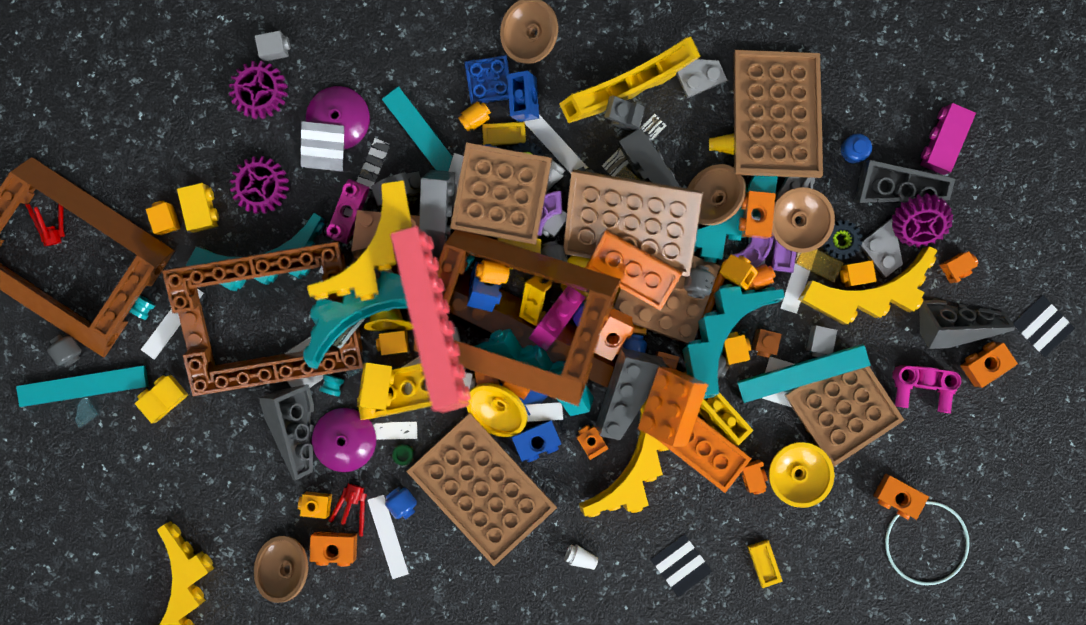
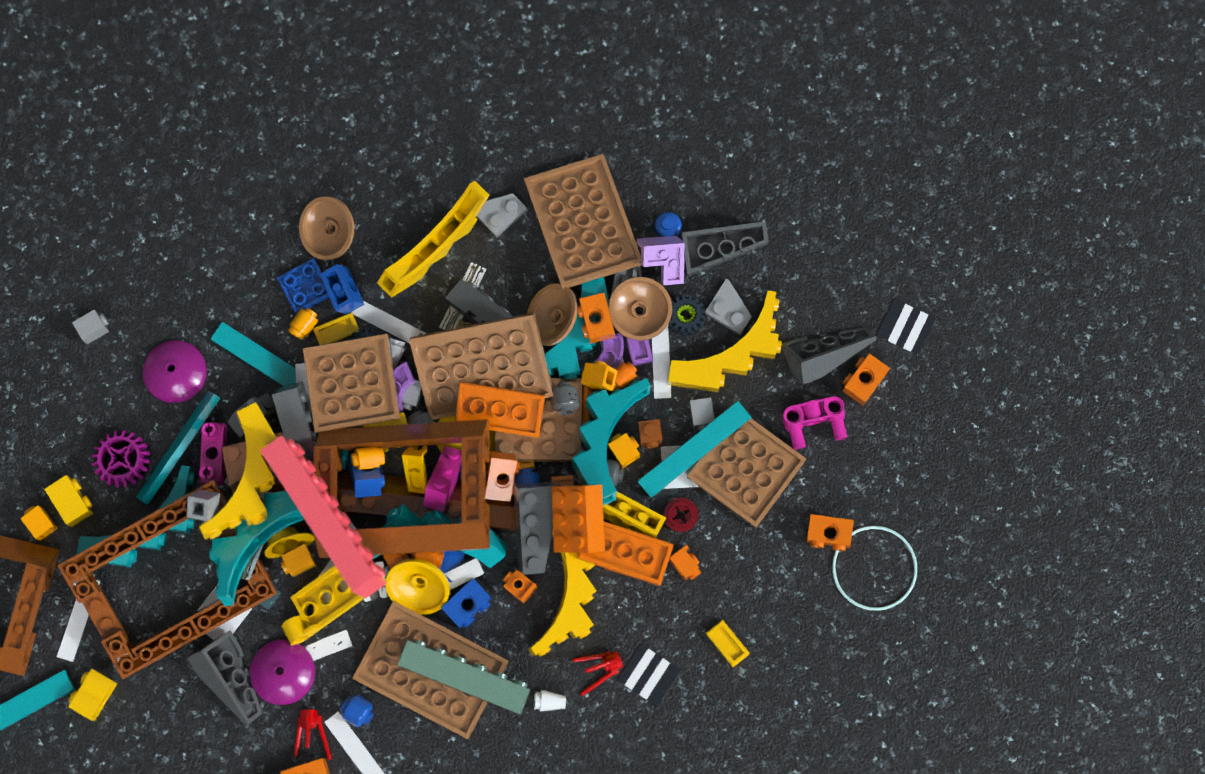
camera: 15 degrees left, 10 degrees down
(85, 412) = (22, 736): clear light blue tile -> none
(142, 307) = (46, 613): teal wheel -> none
(259, 72) = (108, 370): magenta gear -> none
(315, 504) = (274, 742): light orange brick -> none
(316, 194) = (178, 447): none -> teal tile
(318, 265) = (203, 505): none -> light grey brick
(322, 146) = (168, 401): sticker -> none
(331, 385) = (252, 622): teal wheel -> none
(371, 168) = (221, 411): sticker -> none
(375, 386) = (294, 605): yellow brick -> none
(403, 454) = (343, 665): dark green tile -> none
(510, 511) = (464, 677): none -> sand green brick
(624, 114) = (441, 271): dark grey brick -> none
(650, 544) = (610, 662): none -> red plant
(722, 144) = (543, 267): yellow cone -> none
(773, 435) = (683, 505): none -> dark red gear
(815, 477) = (729, 528): yellow dish -> none
(820, 264) = (675, 344): clear yellow tile -> none
(848, 175) = (668, 253): none -> lavender panel
(858, 273) = (713, 339): light orange brick -> none
(922, 220) = (753, 276): magenta gear -> none
(947, 138) = (748, 188): dark pink brick -> none
(959, 266) = (804, 299): orange brick -> none

